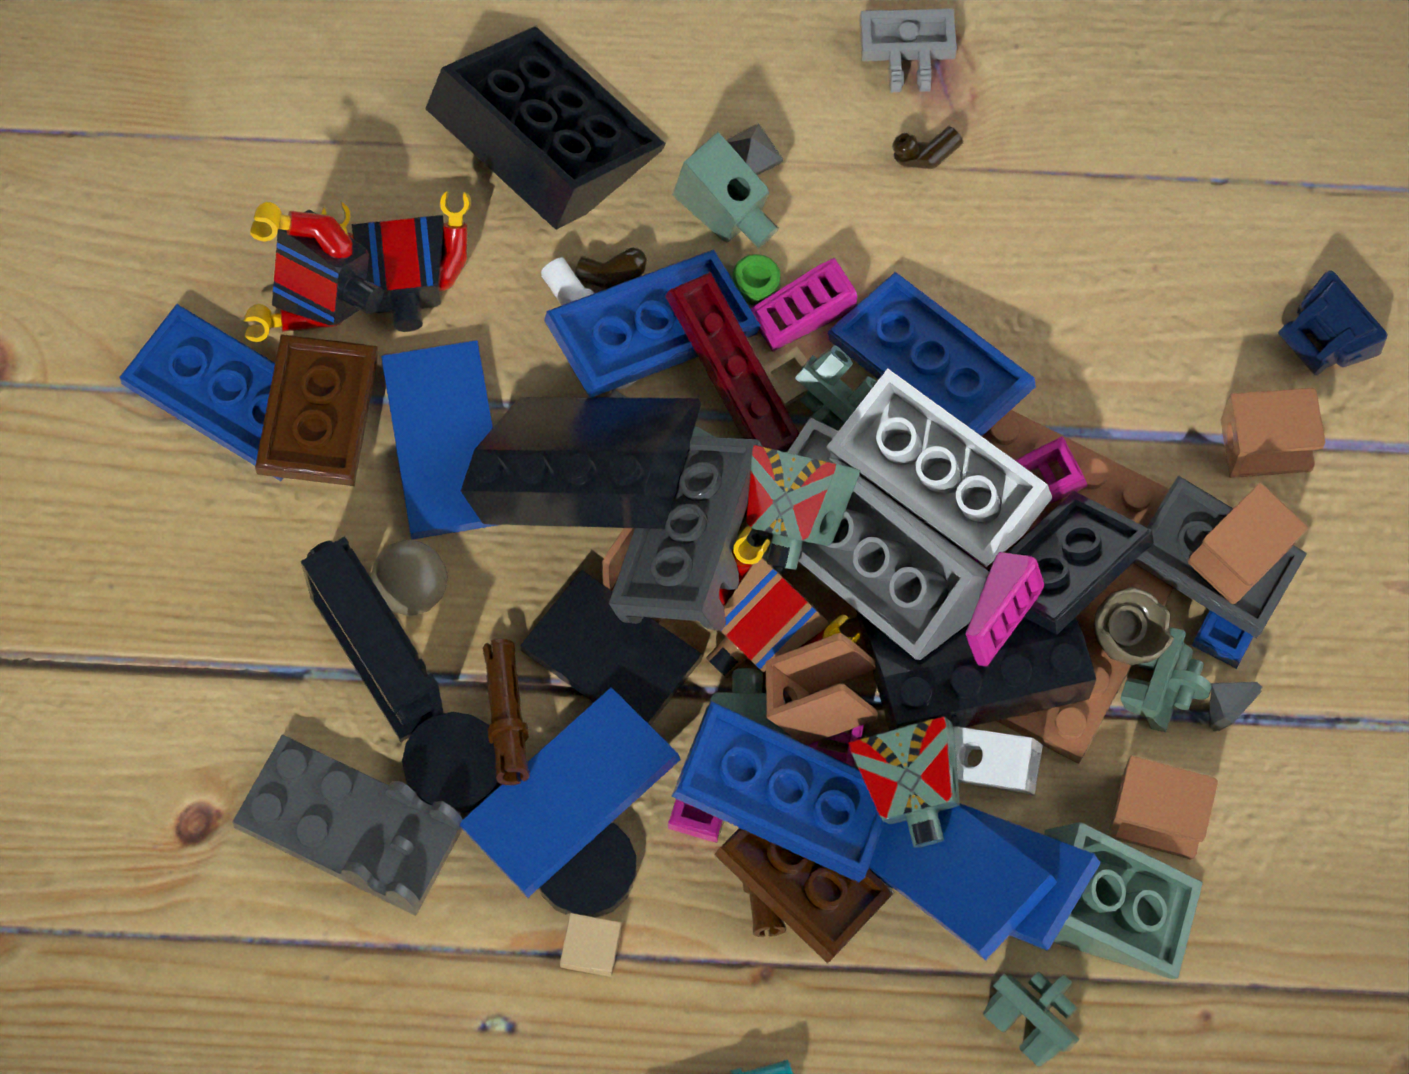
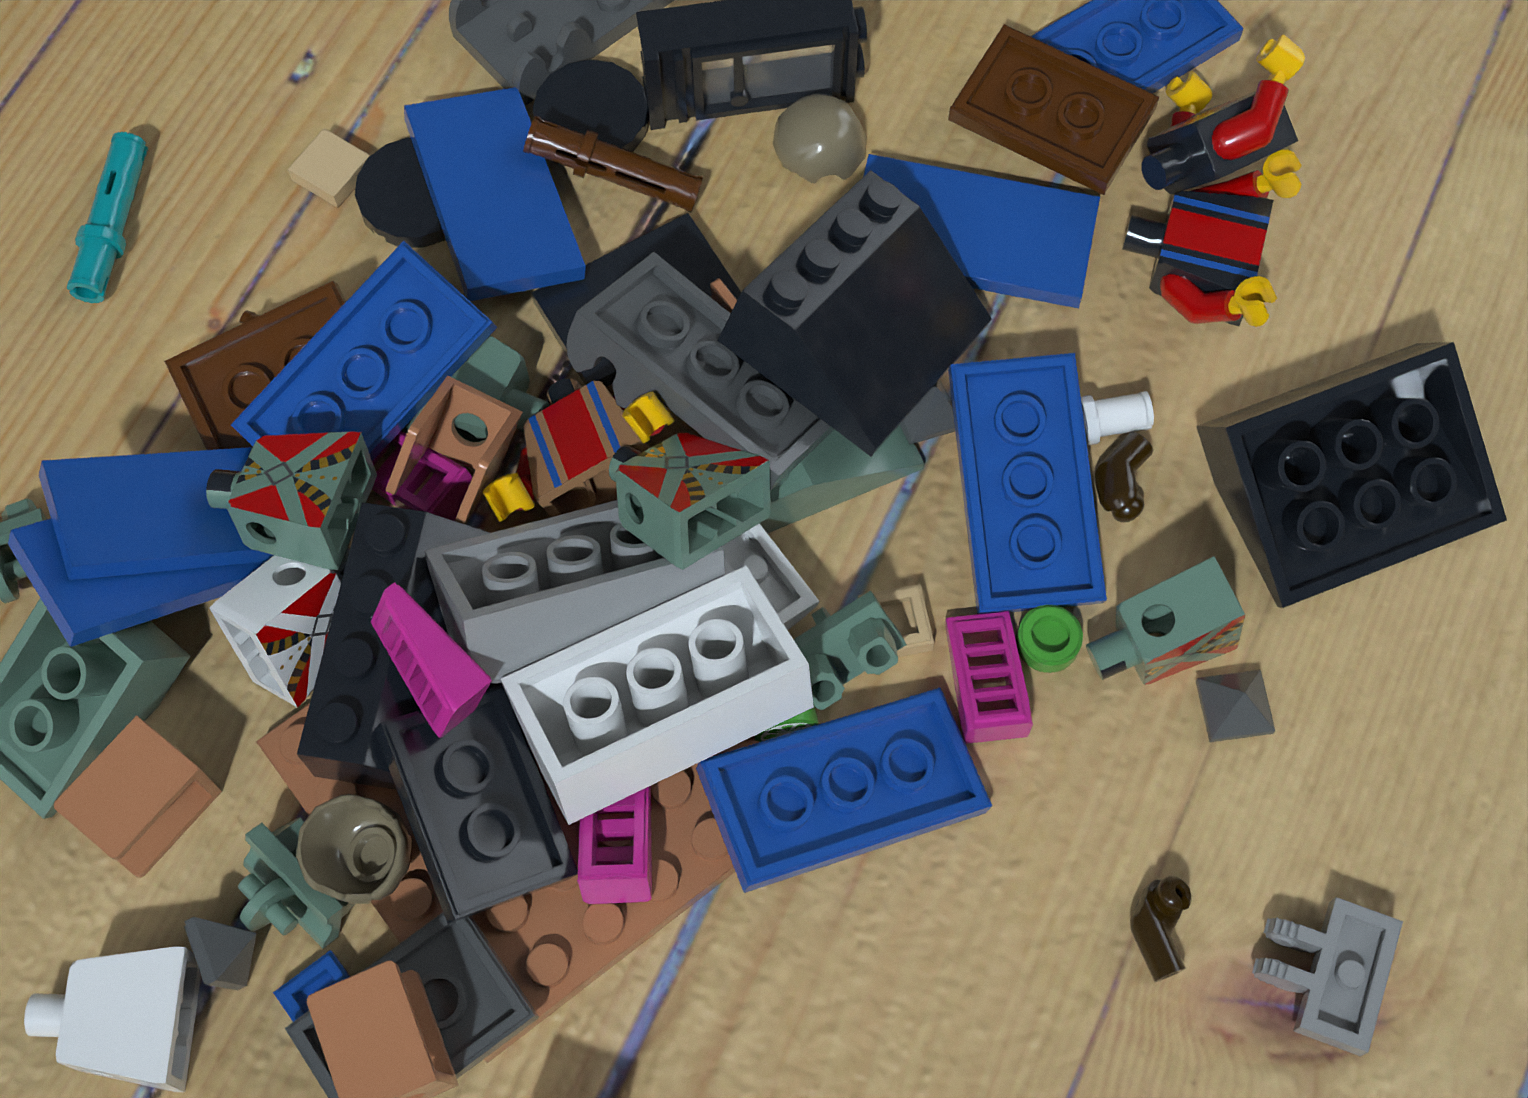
camera: 115 degrees right, 0 degrees up
(732, 363) = (929, 547): dark red tile -> none
(1304, 744) = (124, 1016): none -> white torso

